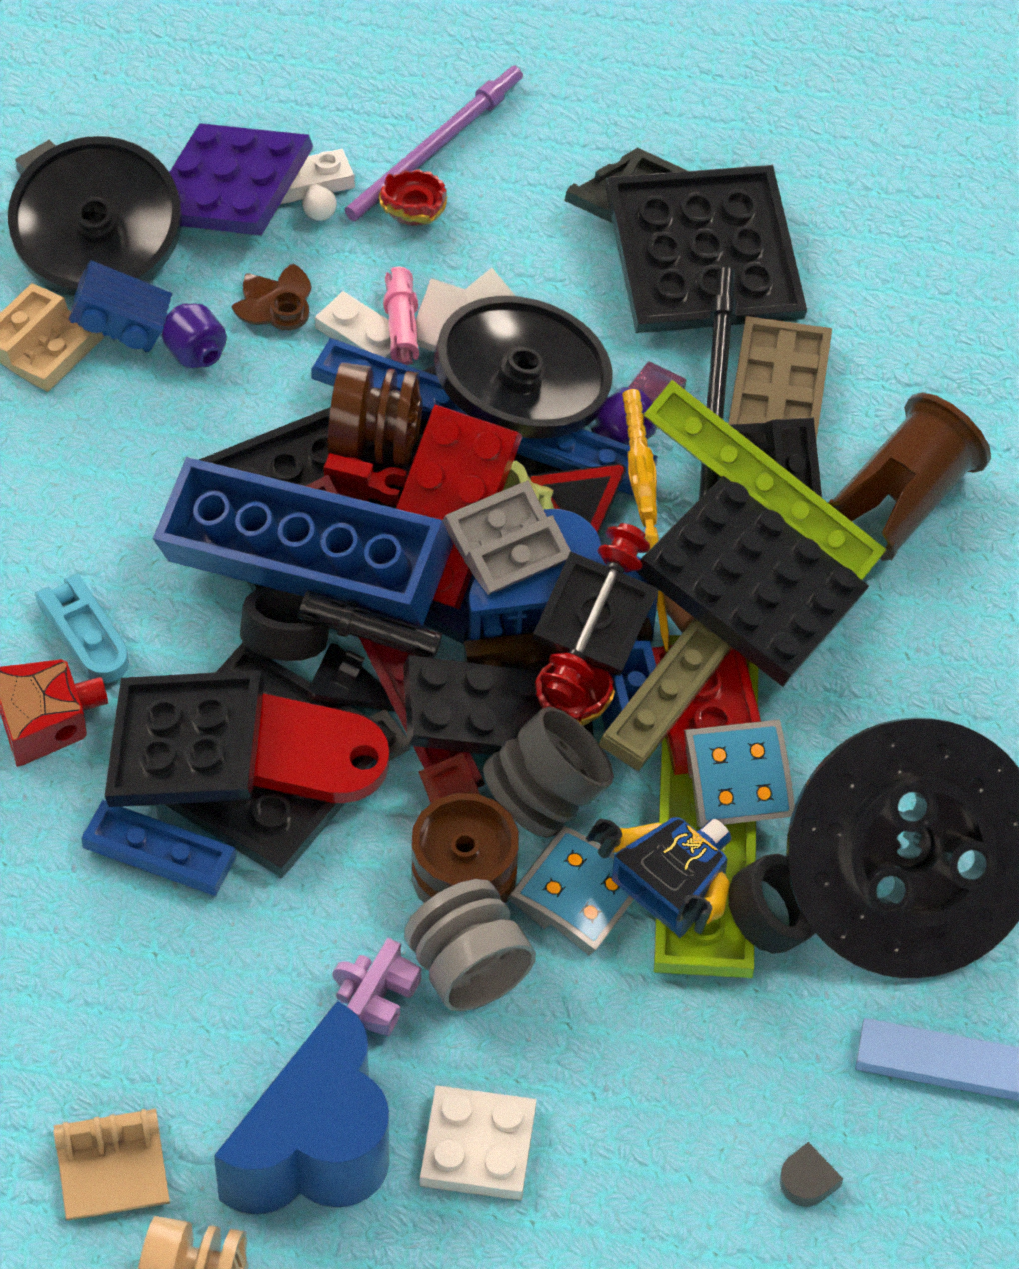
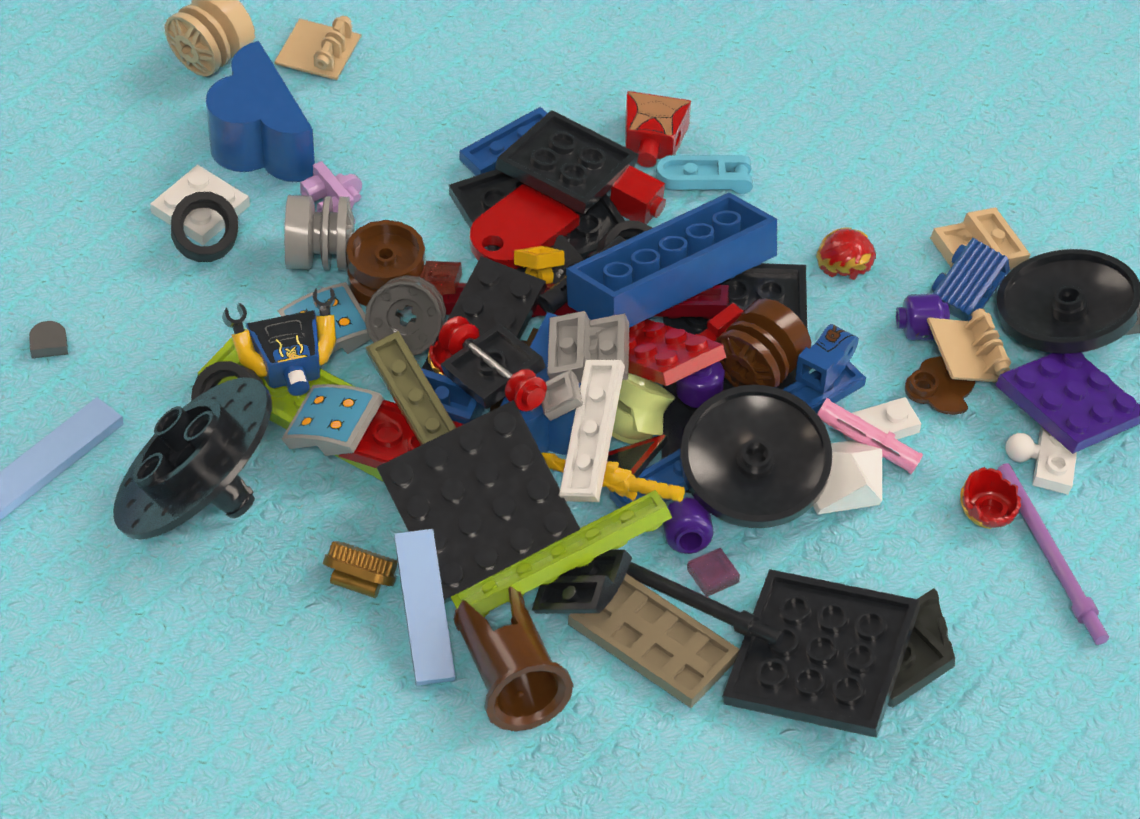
camera: 120 degrees right, 5 degrees down
(132, 447) = (846, 253): none -> red hair
(173, 654) = (638, 195): none -> red brick
(215, 274) = (971, 347): none -> tan hinge
(321, 356) = (826, 356): none -> blue leg
(364, 691) = (539, 261): none -> yellow tile
(519, 1109) = (211, 201): none -> black tyre
(590, 525) = (562, 395): none -> light grey tile
(615, 488) = (592, 431): none -> white tile
(889, 672) = (359, 569): none -> pearl gold piece
(902, 580) = (424, 607): none -> light blue tile

